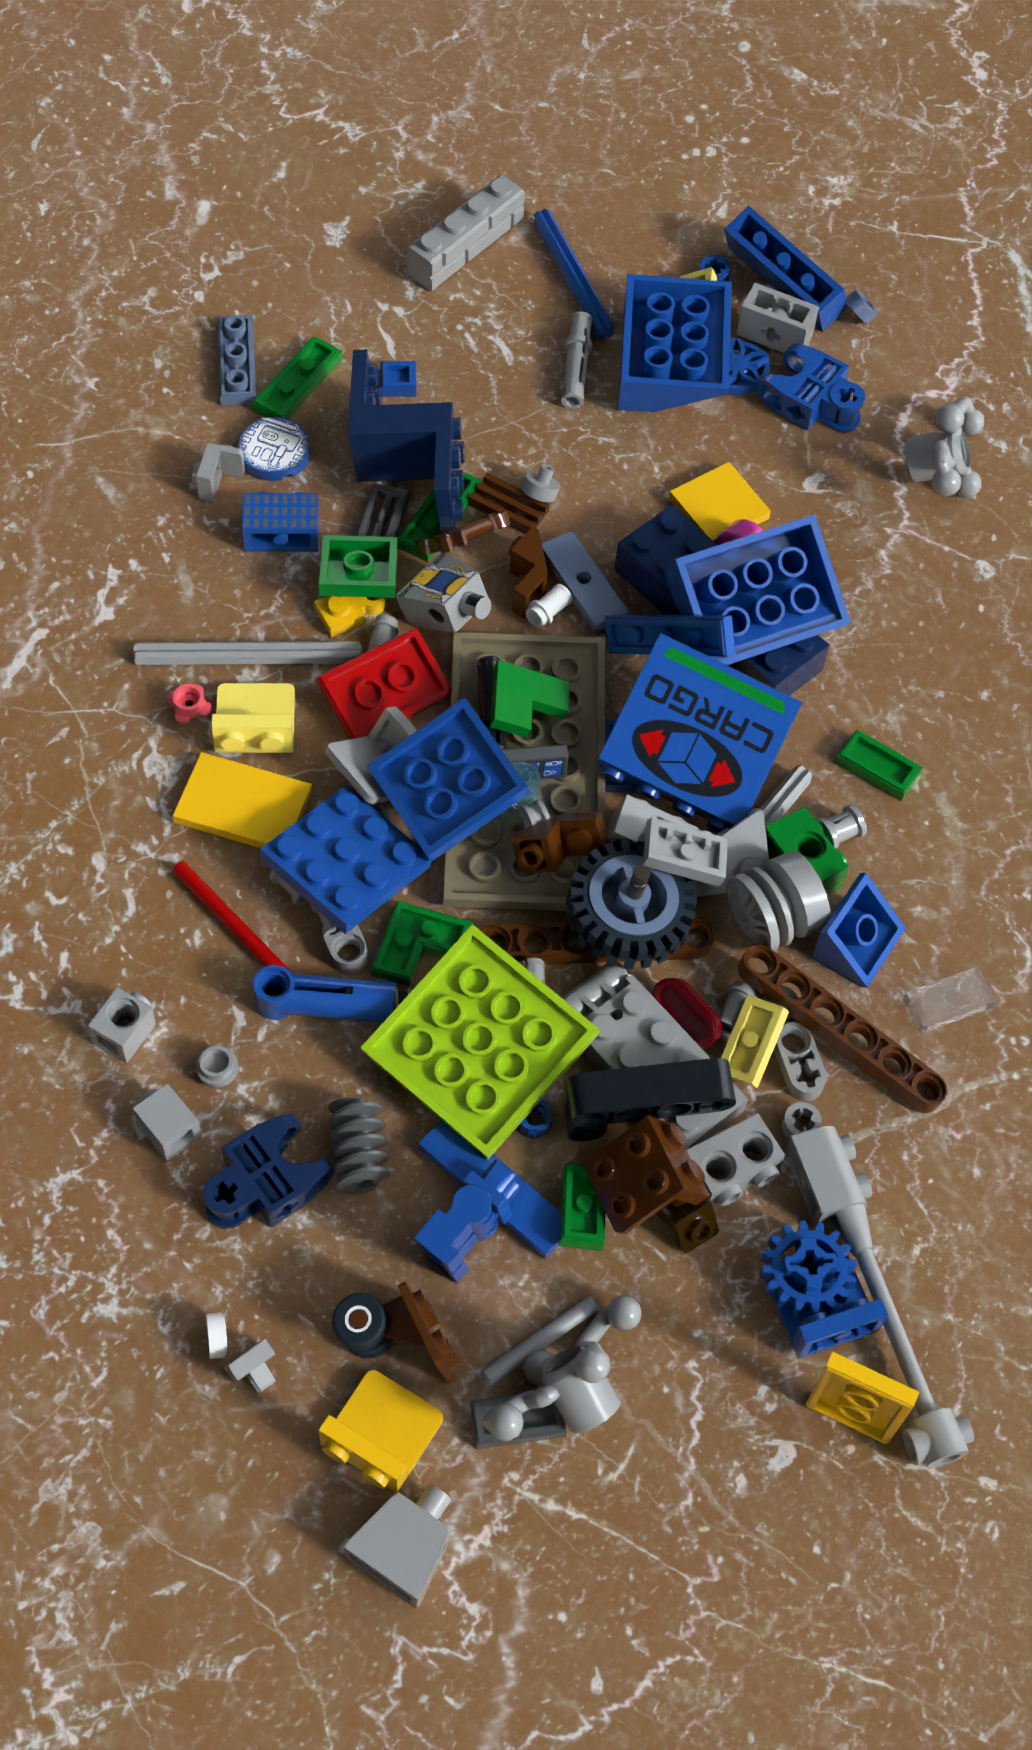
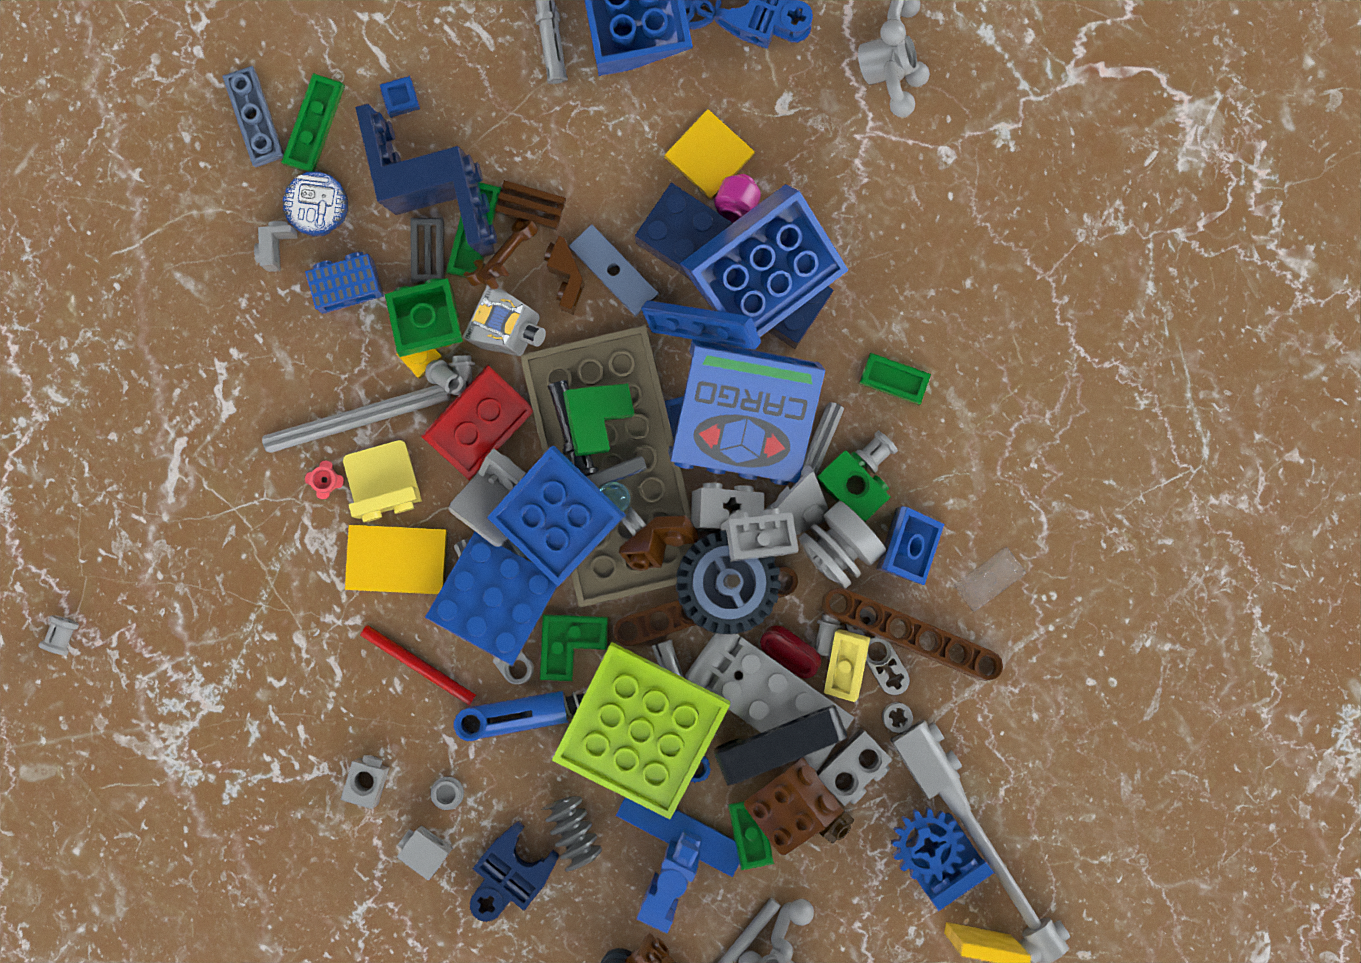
camera: 10 degrees left, 25 degrees up
(358, 628) = (439, 373): none -> light grey pin
(541, 484) = (553, 182): light grey tile -> none
(542, 611) = (591, 302): white pin -> none

